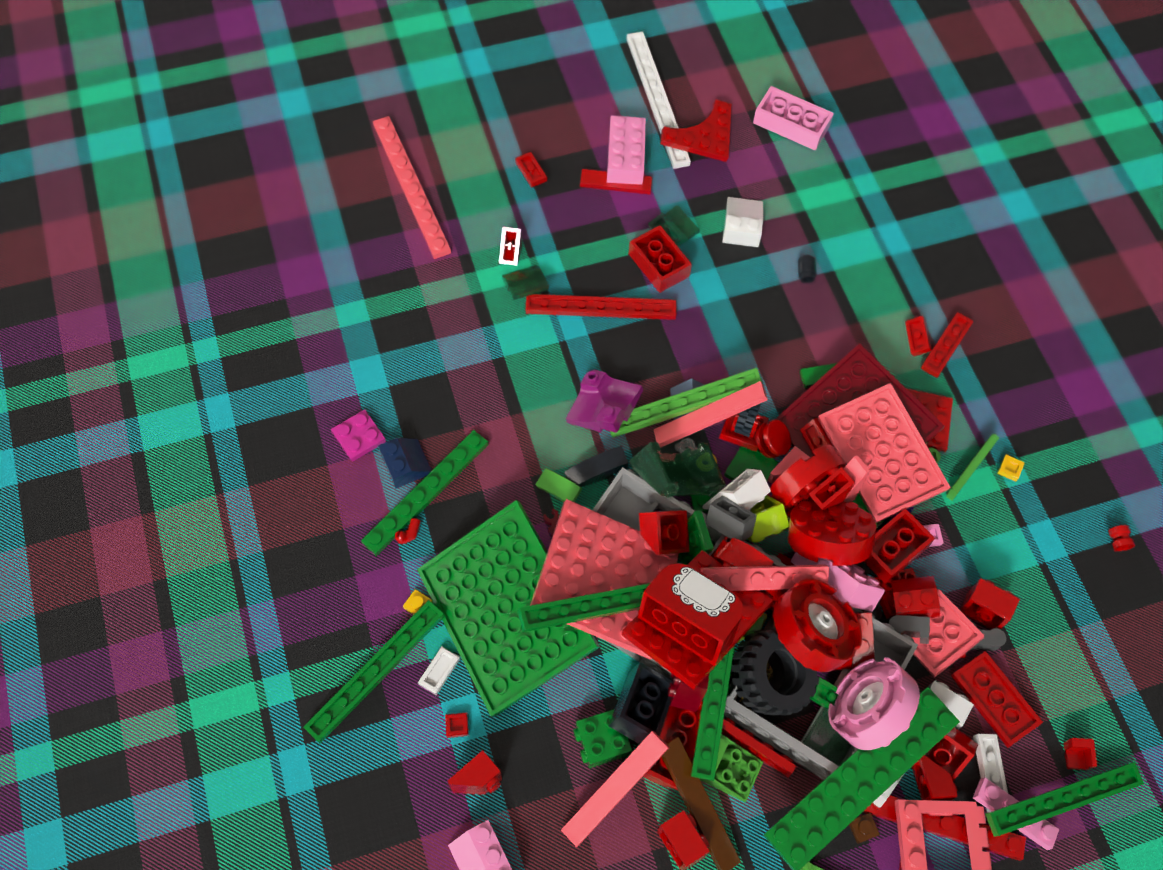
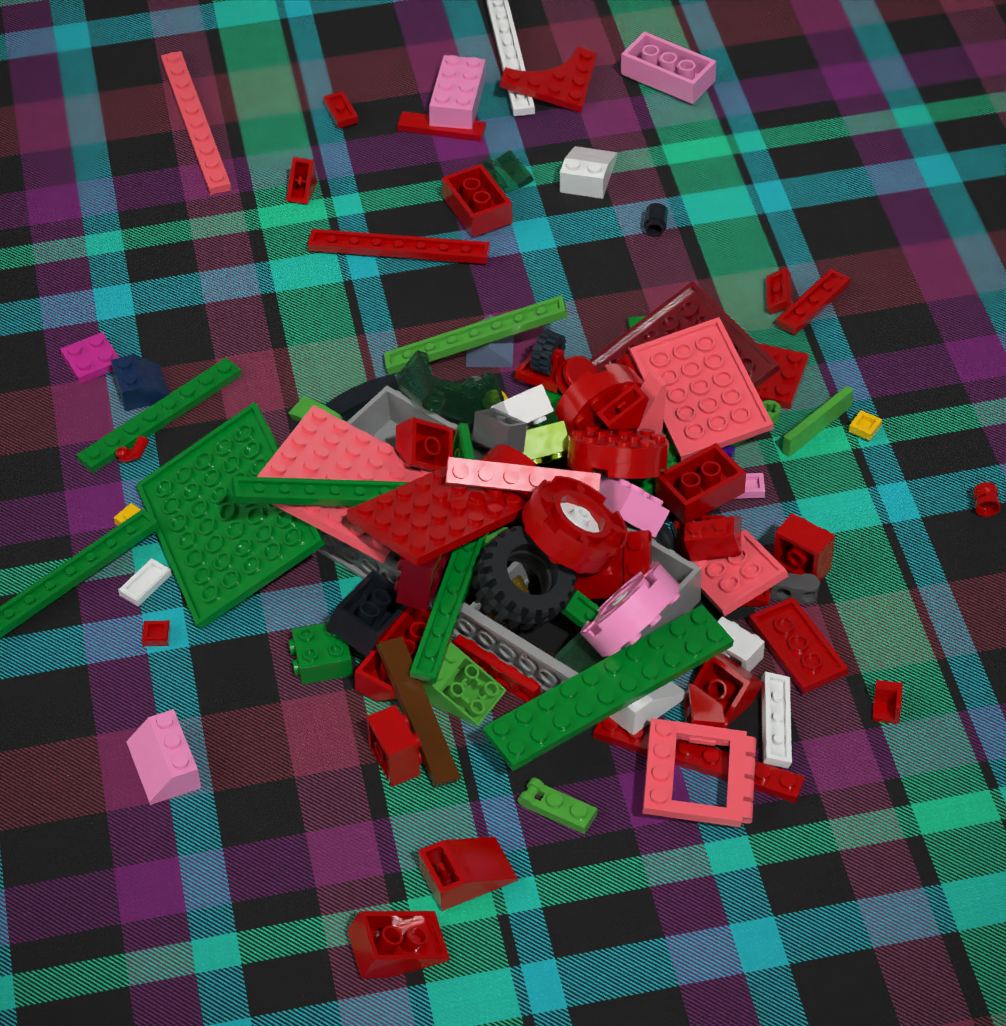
camera: 10 degrees right, 15 degrees down
(476, 777) = (166, 672): red slope -> none
(525, 282) = (313, 218): clear green slope -> none
(603, 402) = (382, 335): magenta slope -> none
(615, 788) = (322, 687): coral tile -> none
(692, 610) = (424, 488): red brick -> none
(710, 414) = (504, 344): coral tile -> none
(864, 828) = (613, 758): reddish brown plate -> none
(912, 626) = (710, 560): dark grey leg -> none
(994, 798) = (795, 749): bright pink plate -> none
(1063, 799) = (853, 734): green plate -> none

